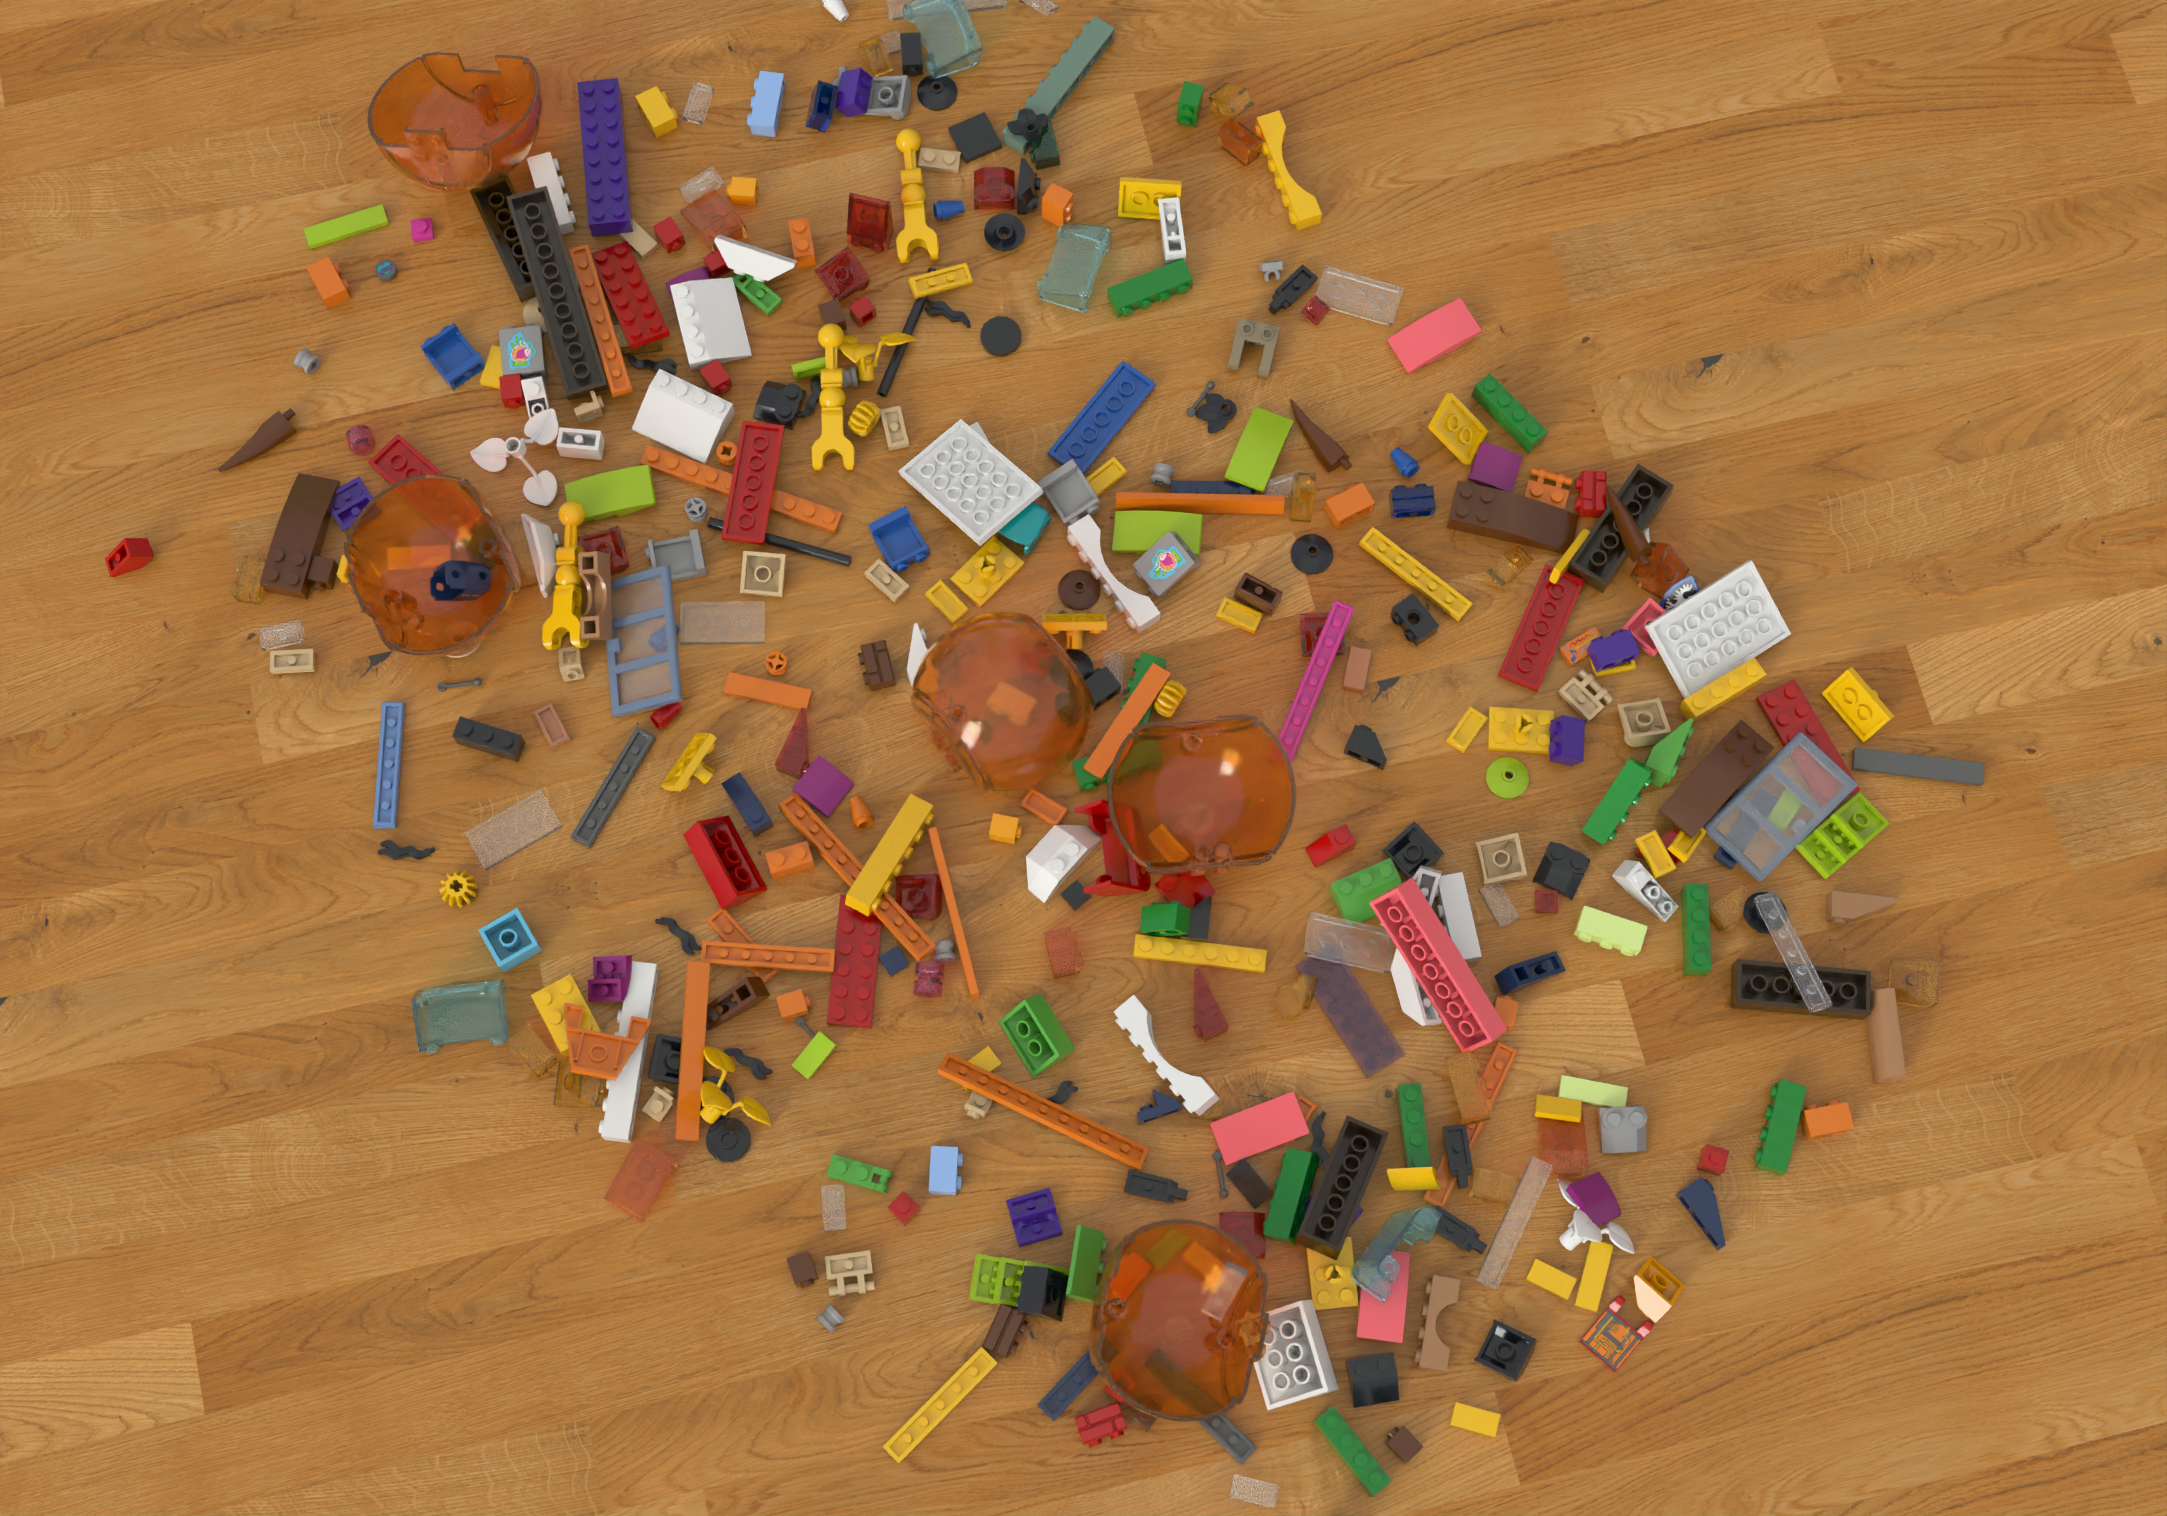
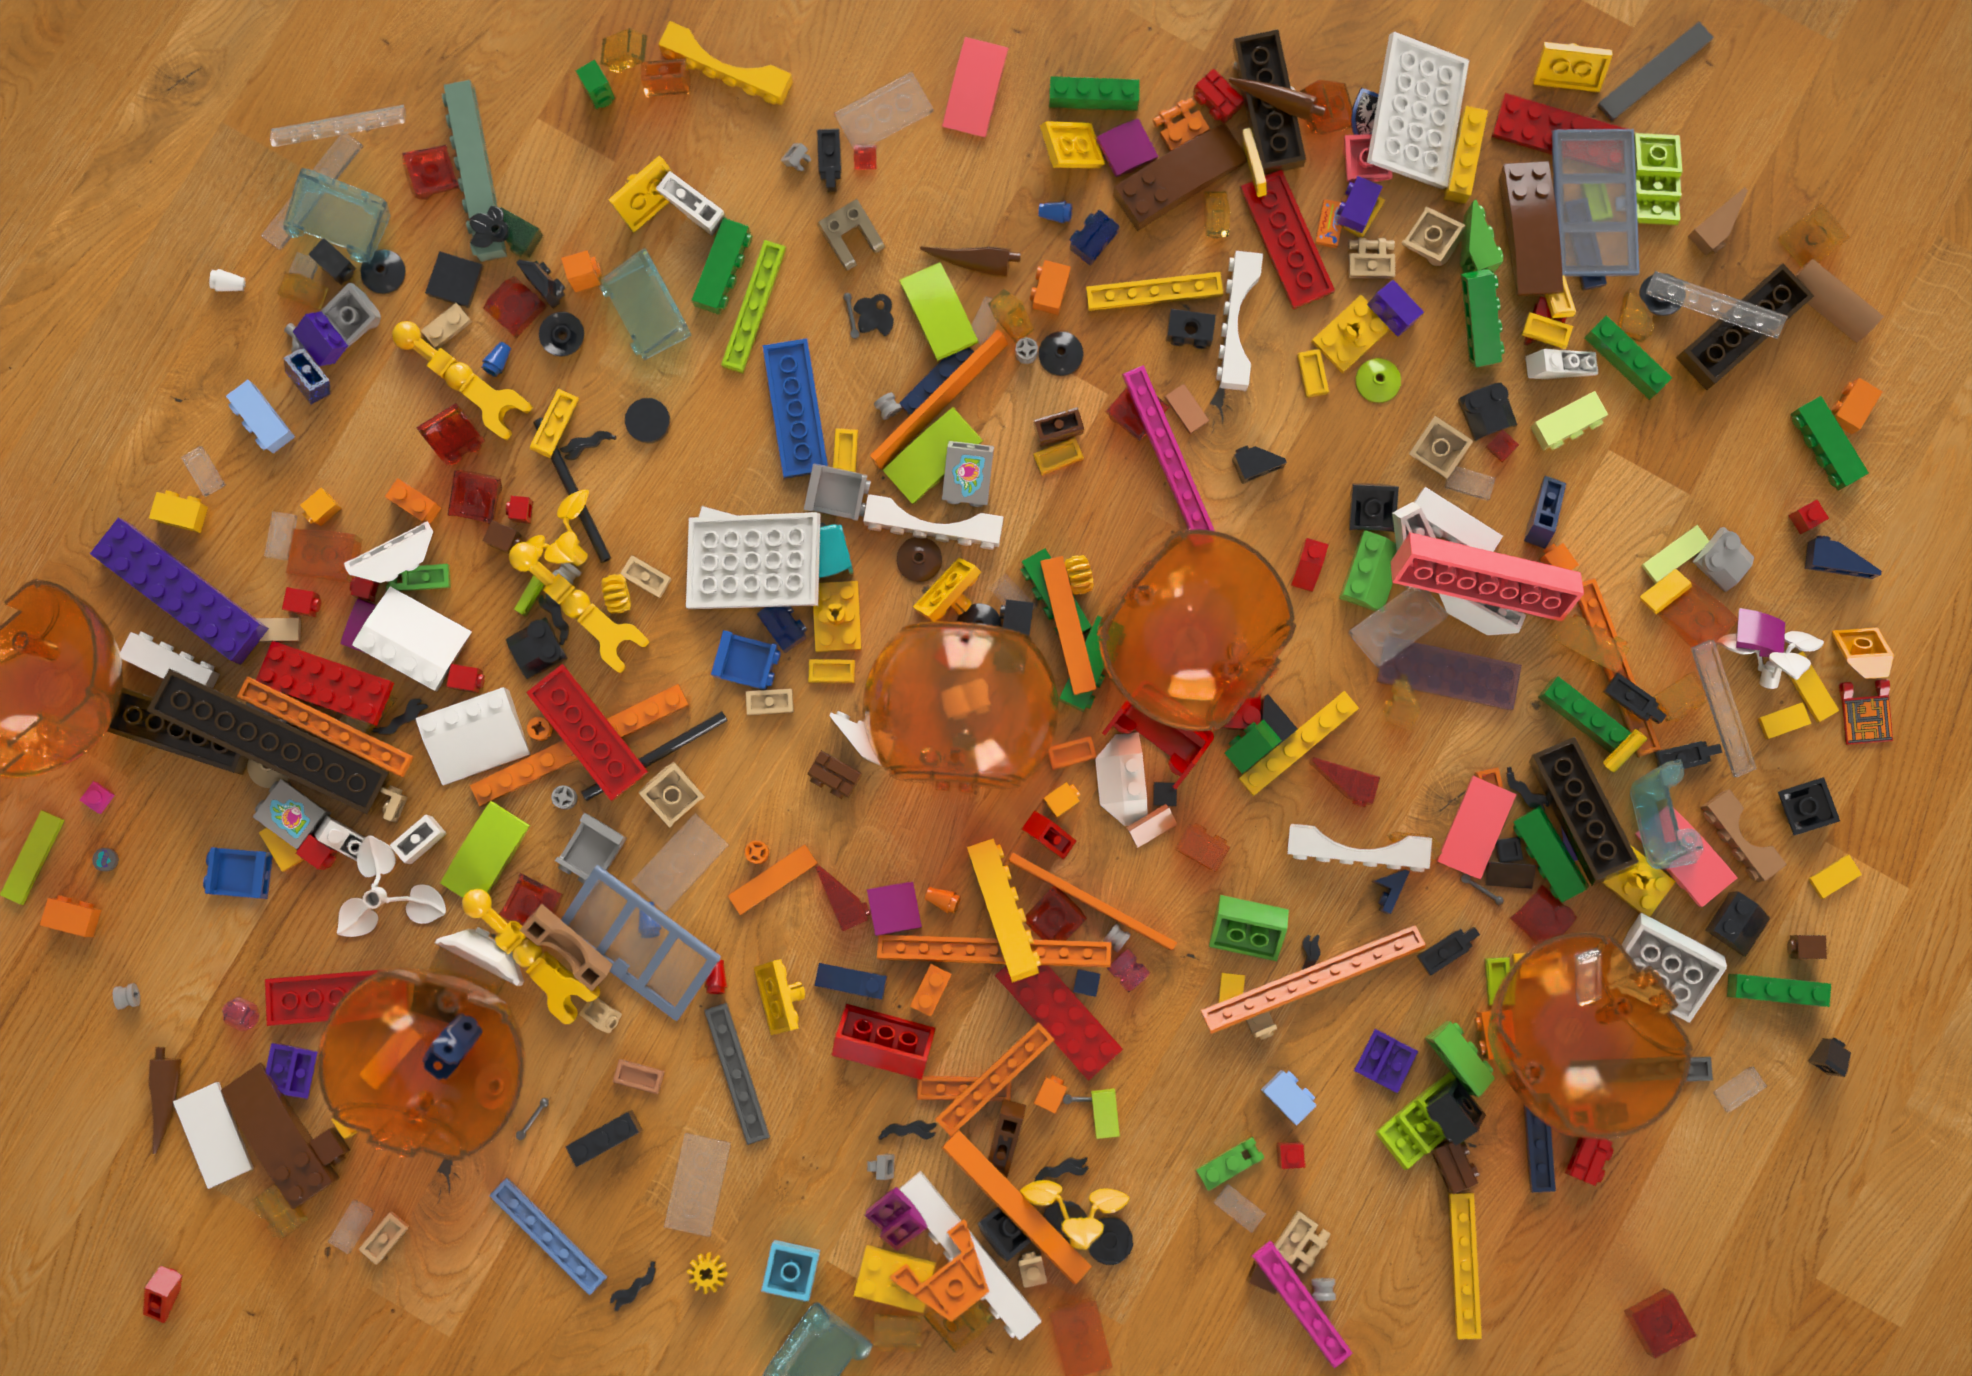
camera: 45 degrees left, 10 degrees up
(264, 496) = (213, 1135): none -> white tile
(638, 938) = (883, 1166): none -> light grey tile
(805, 1310) = (1302, 1304): none -> dark pink tile
(946, 543) = (783, 626): none -> clear blue brick
(972, 842) = (1049, 834): none -> red slope
(1030, 59) = (429, 171): none -> clear red slope
(1045, 905) = (1151, 825): none -> tile
(1144, 333) = (753, 306): none -> lime tile
(1267, 1167) = (1509, 849): none -> black tile
(1290, 523) = (1026, 345): none -> light grey wheel
(1486, 623) = (1235, 364): none -> white arch

